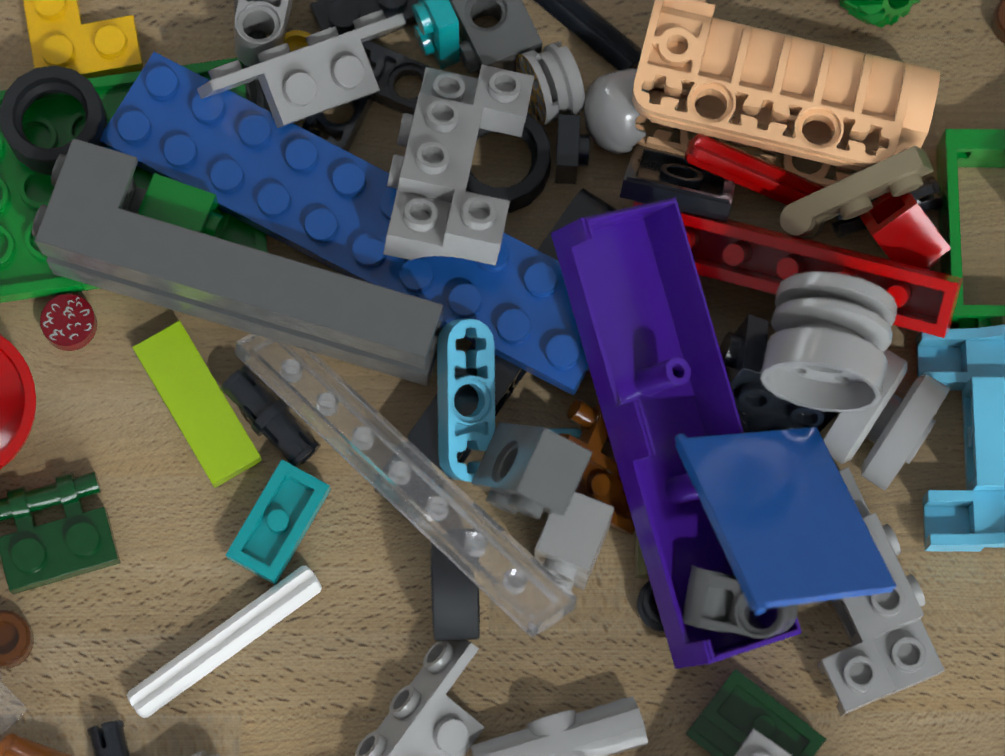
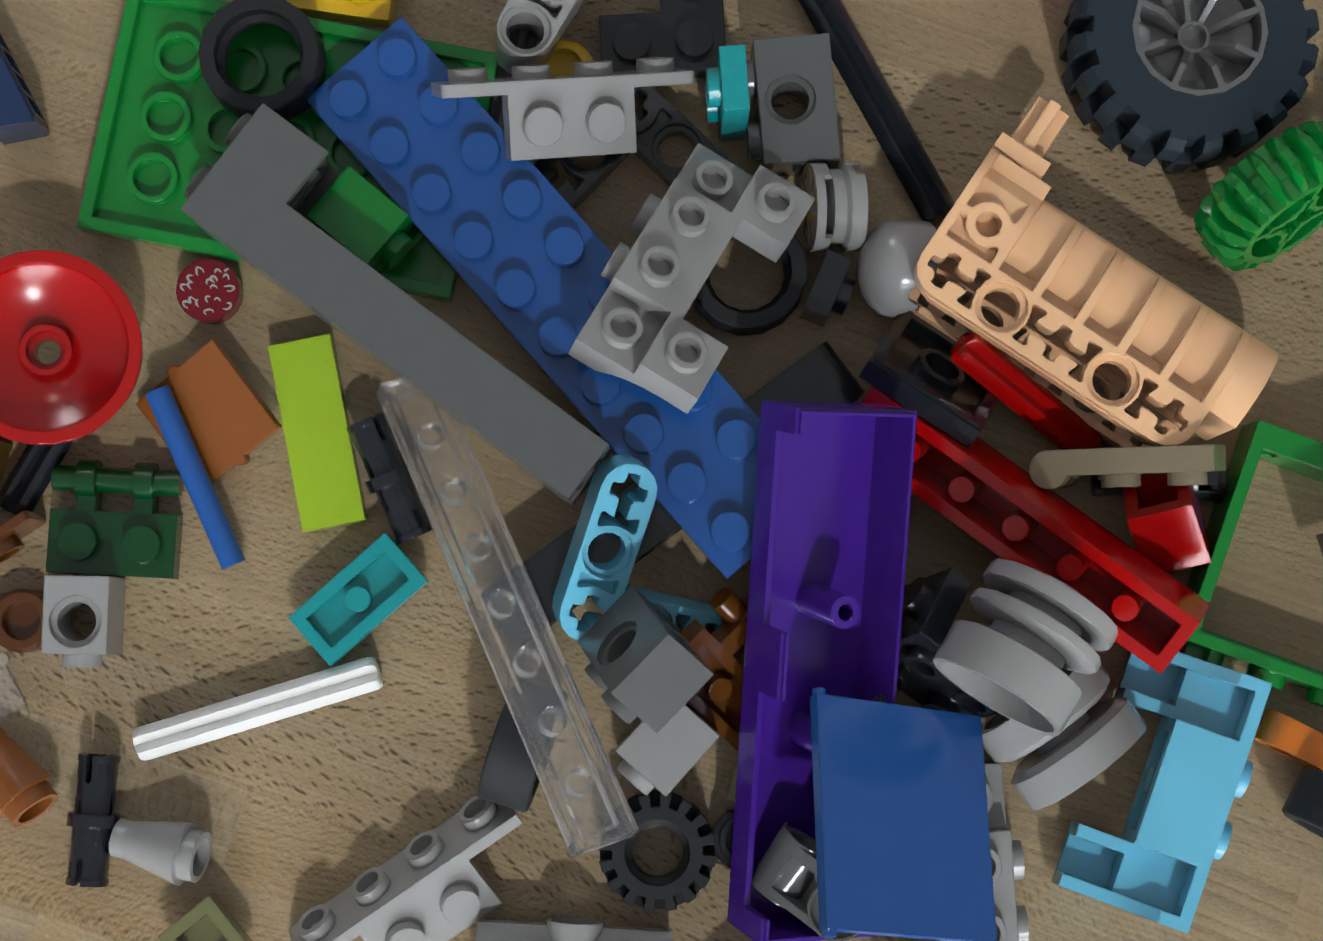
camera: 20 degrees right, 10 degrees up
(38, 597) = (62, 598): none -> light grey brick
(102, 419) = (218, 408): none -> dark orange piece
(108, 471) = (195, 477): none -> blue bar
(608, 670) = (686, 879): none -> black tyre

